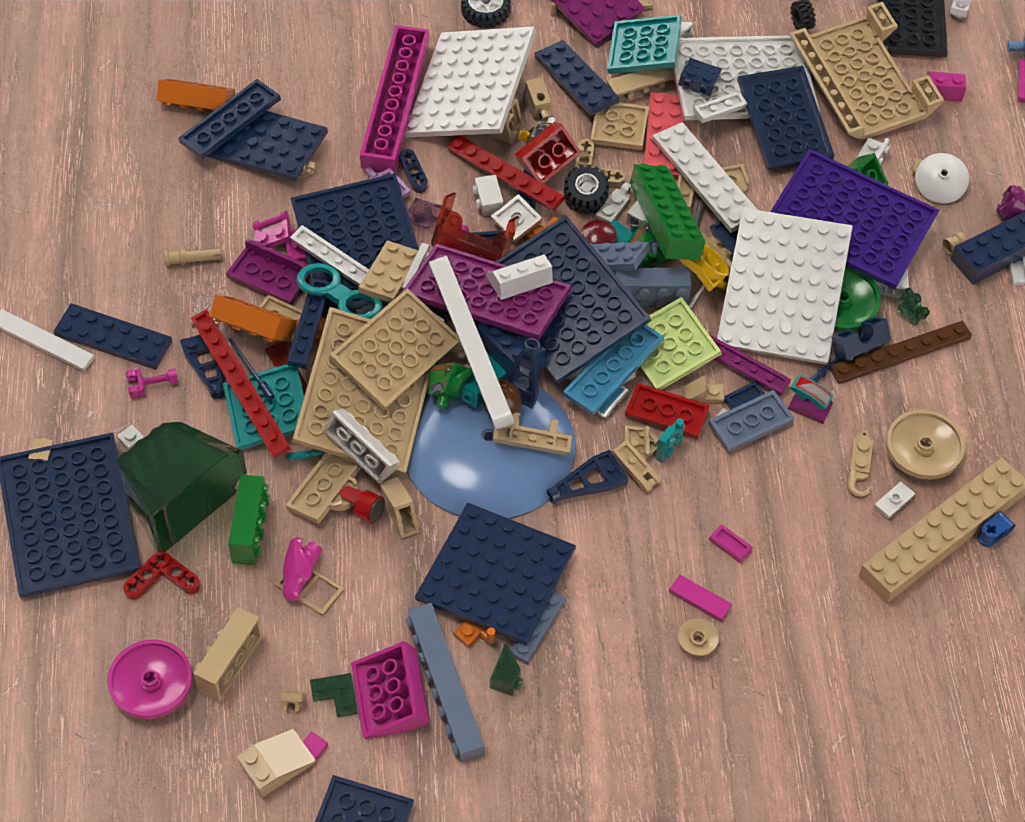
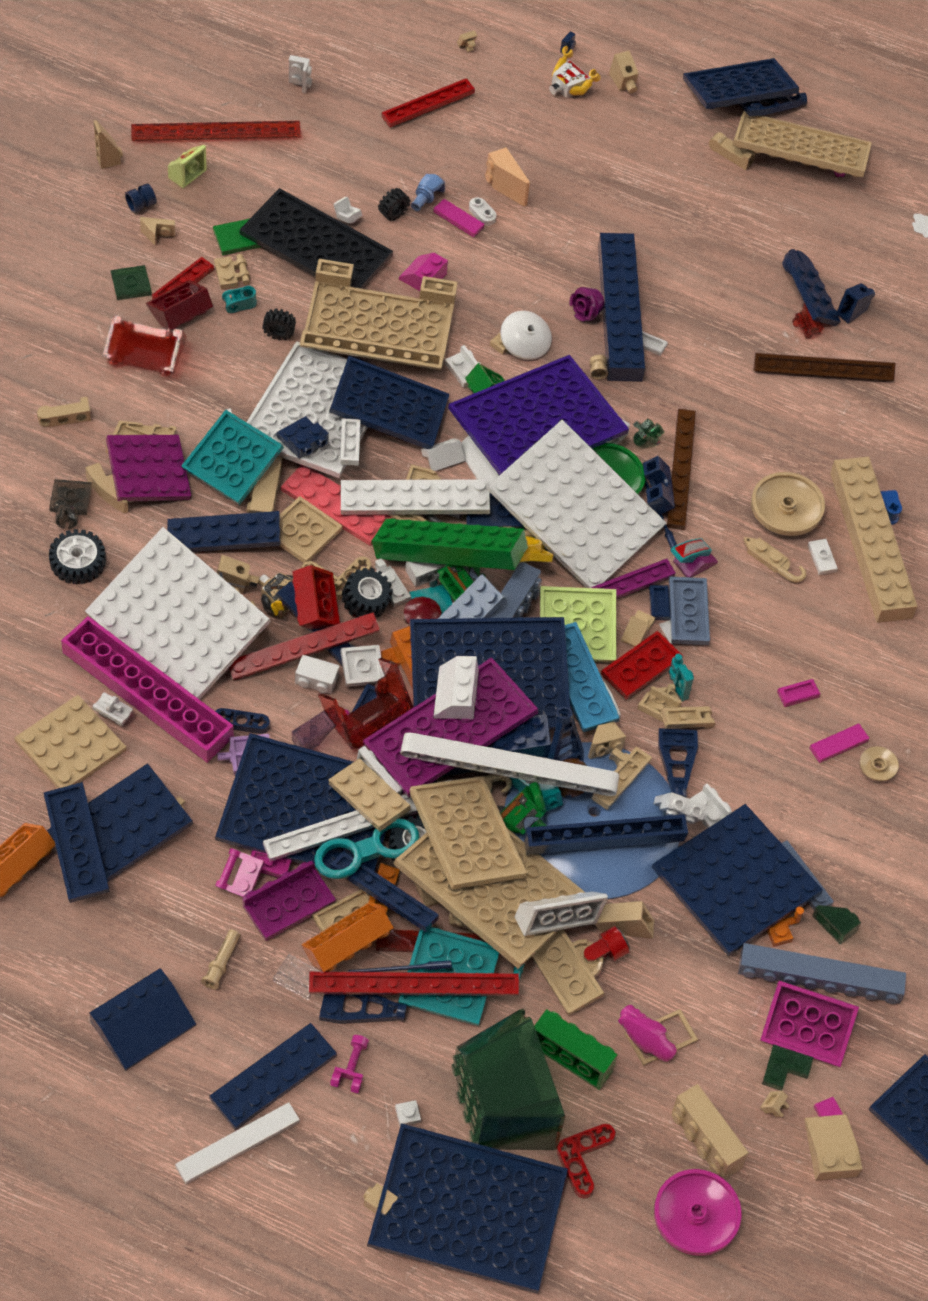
camera: 65 degrees left, 0 degrees up
(110, 231) = (142, 1019): none -> dark blue slope
(320, 81) = (70, 743): none -> tan plate
(363, 88) = (113, 709): none -> white hips
(463, 448) = (605, 834): none -> dark blue brick
(531, 494) = (676, 805): none -> white plate
(558, 521) = (715, 809): none -> white bracket
(566, 411) = (606, 739): none -> tan slope
(769, 180) = (444, 454): none -> white panel
(994, 22) = (394, 204): none -> black tyre

